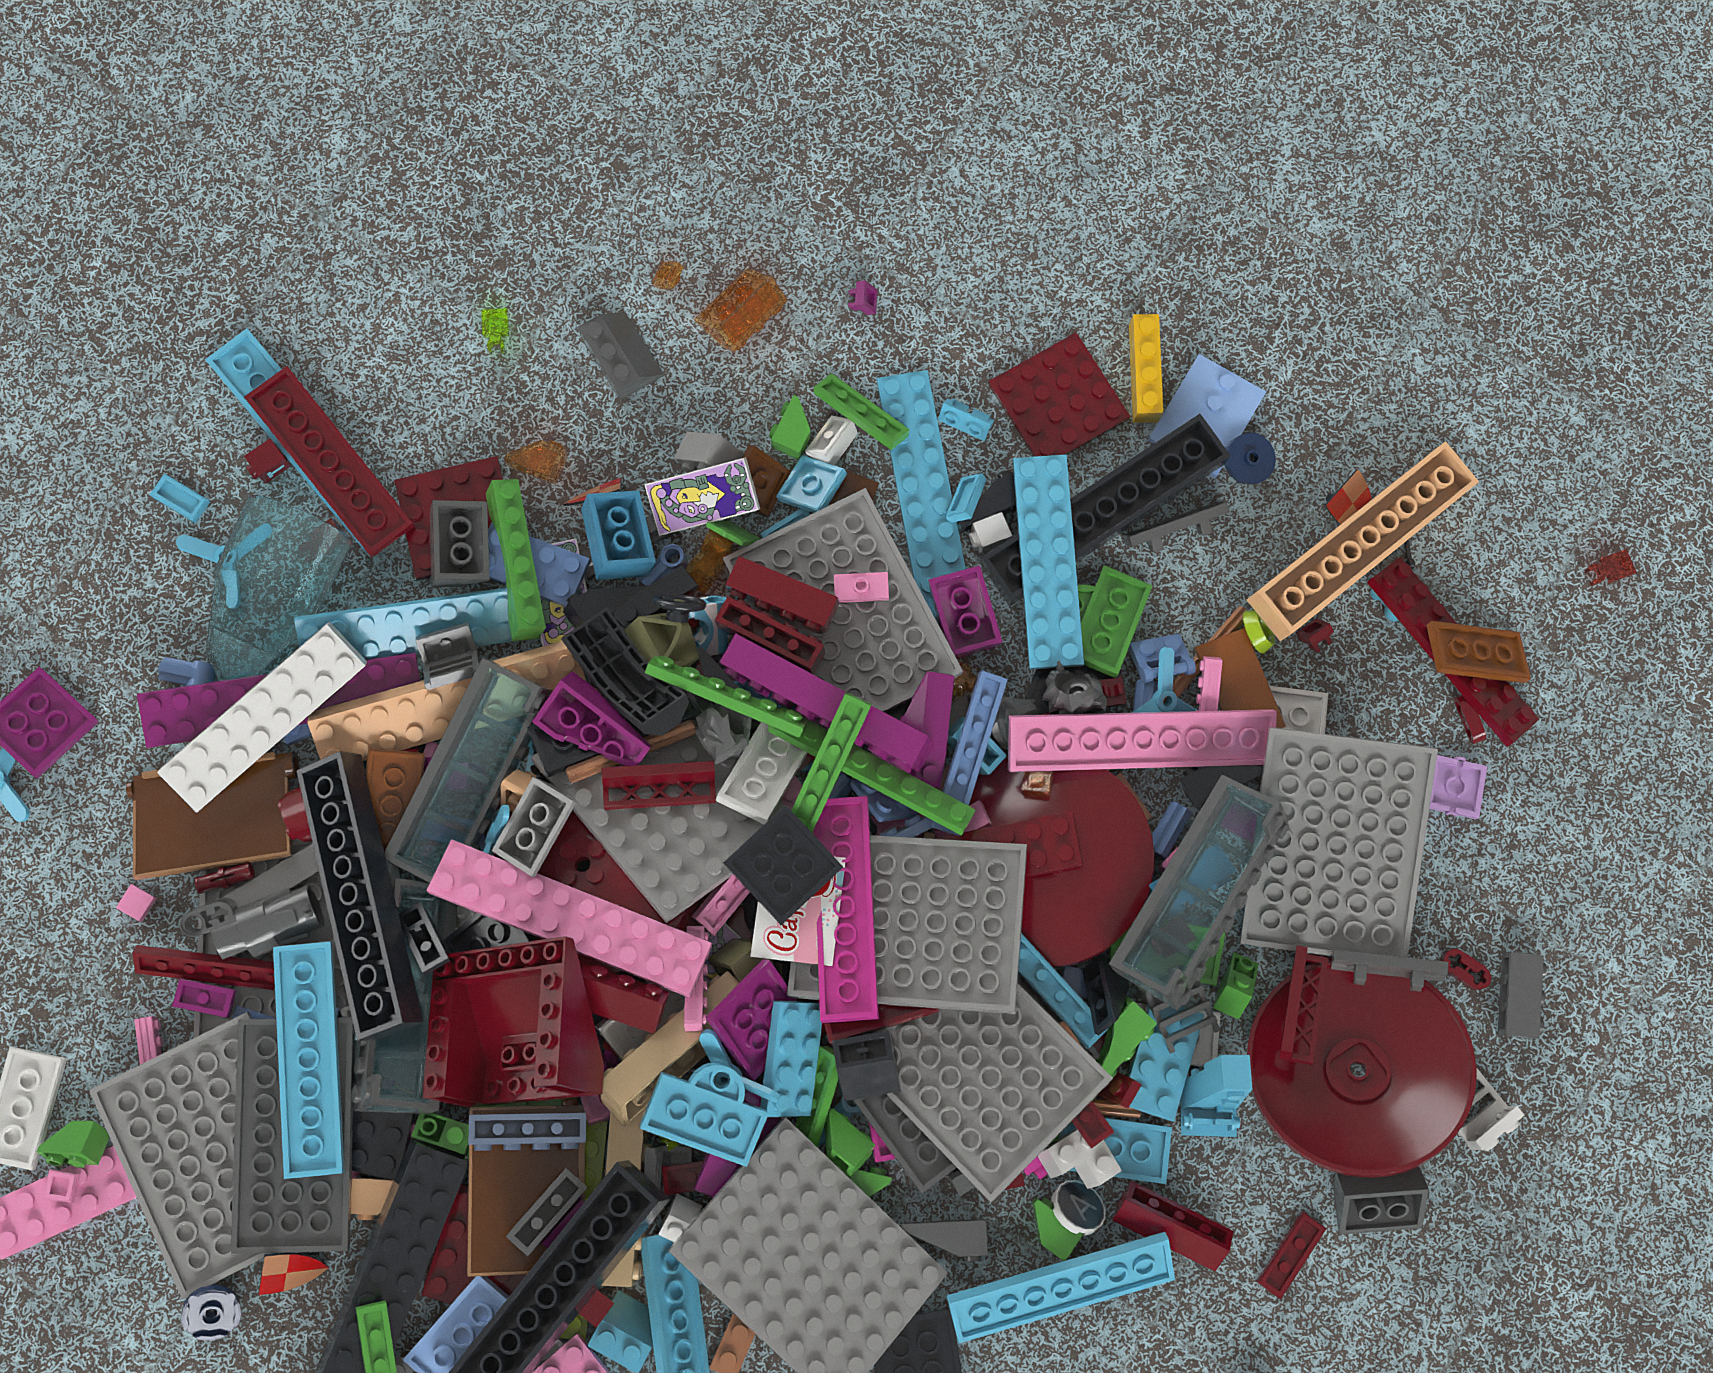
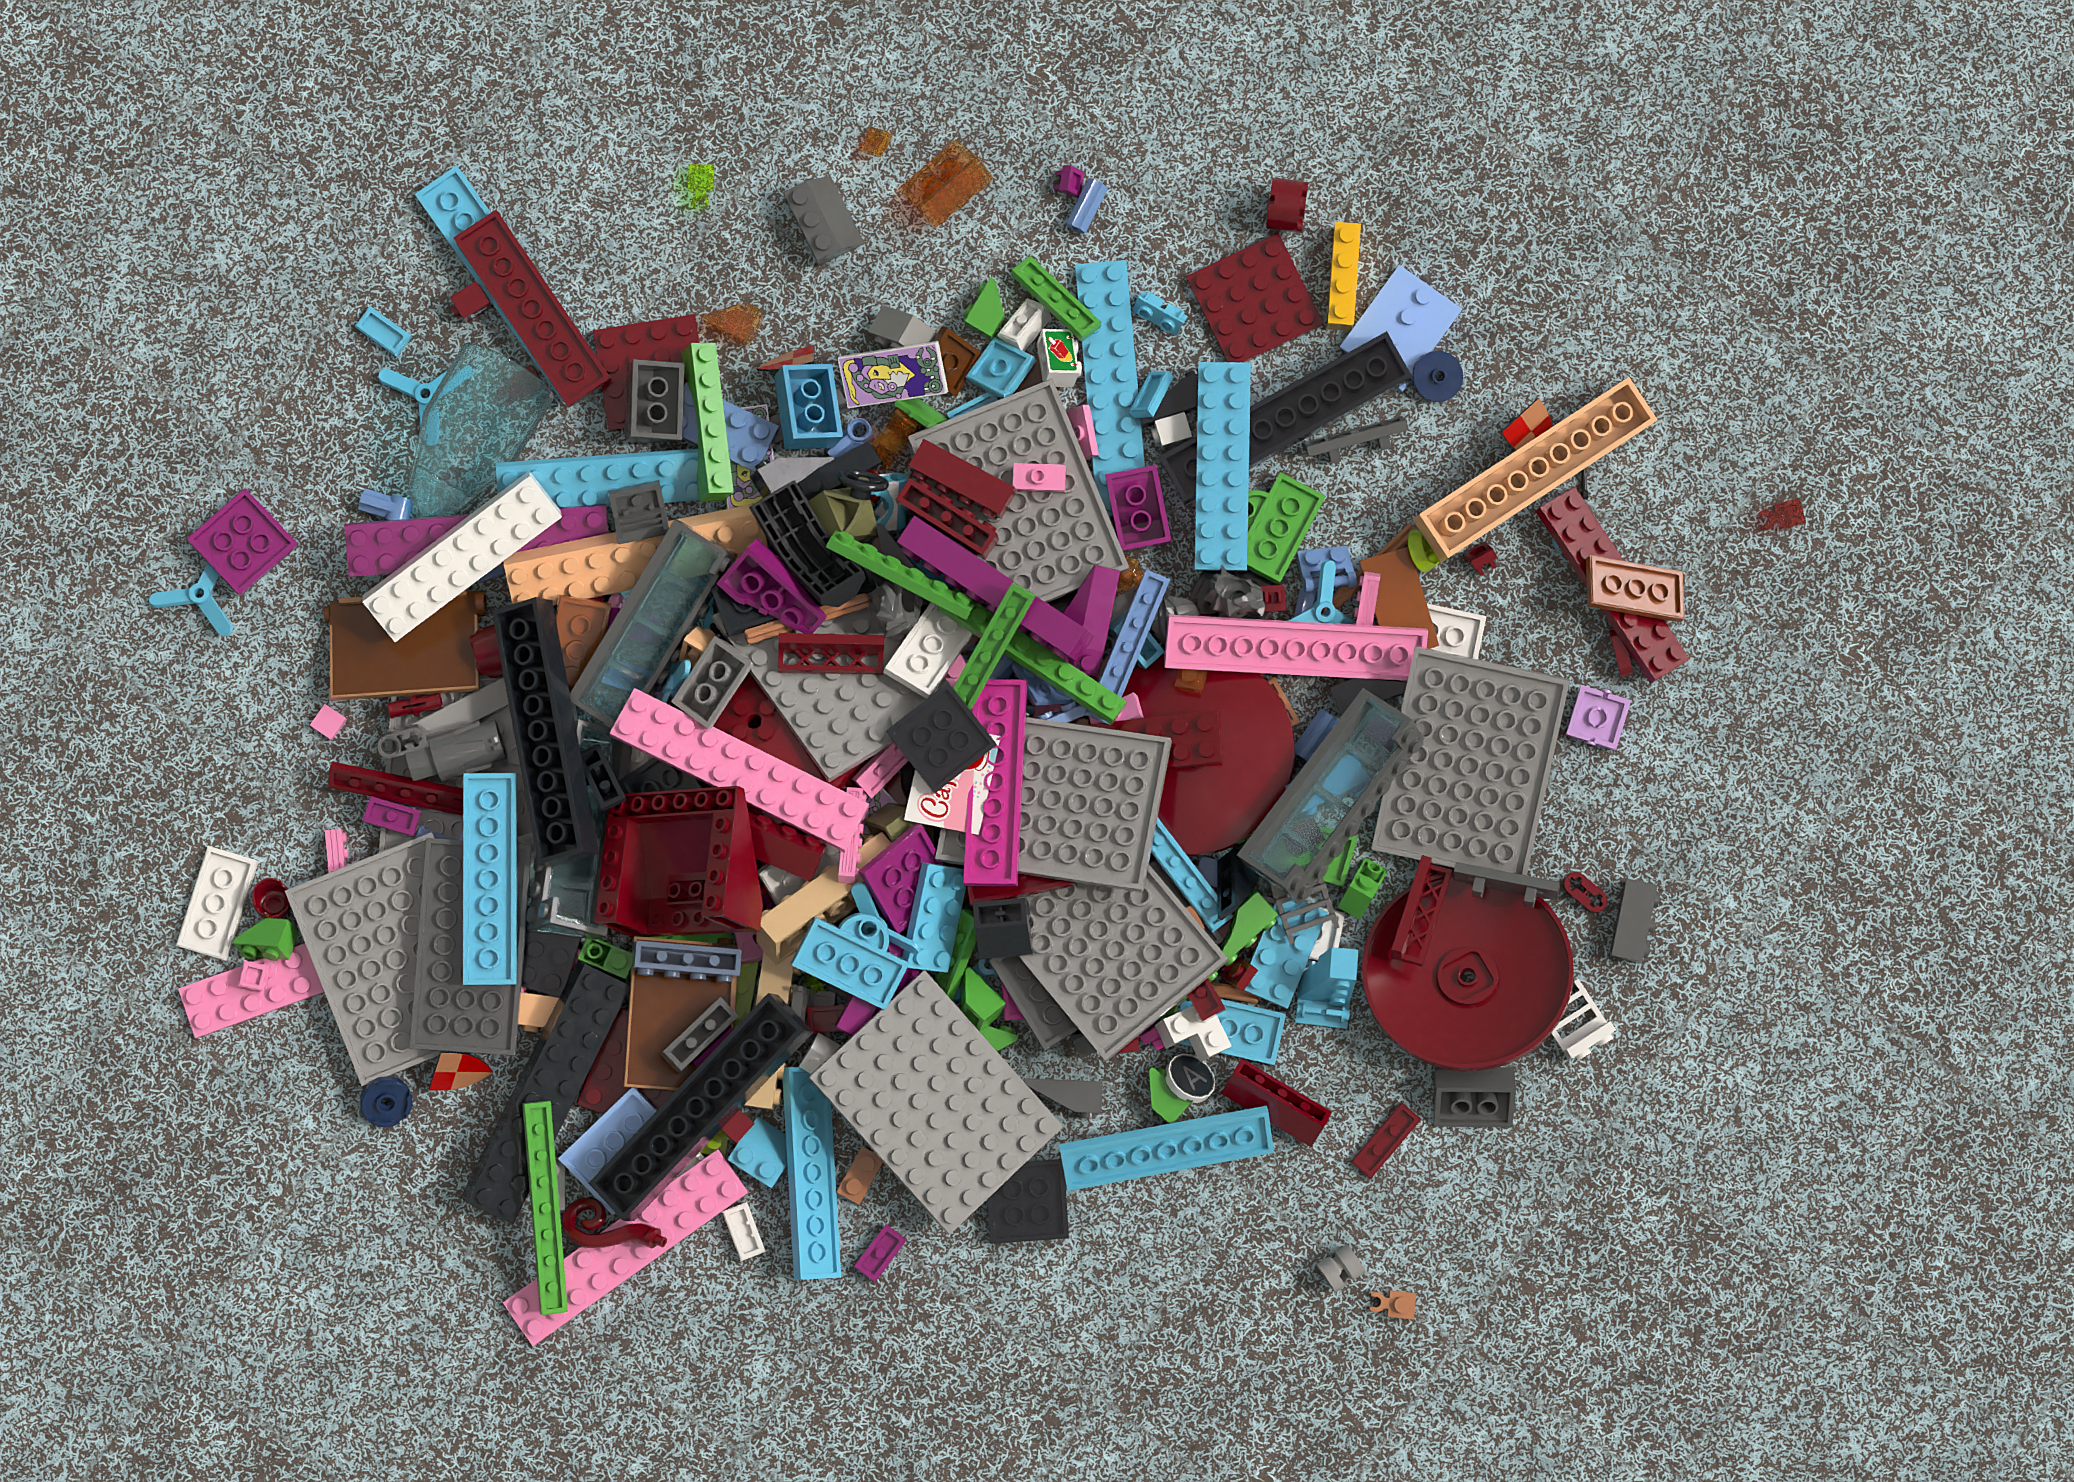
camera: 10 degrees right, 5 degrees up
(75, 1100) = (270, 898): none -> dark red hair
(869, 467) = (1058, 357): none -> brick
(883, 321) = (1086, 206): none -> medium blue axle
(901, 535) = (1082, 424): none -> bright pink plate
(1083, 302) = (1287, 205): none -> dark red brick

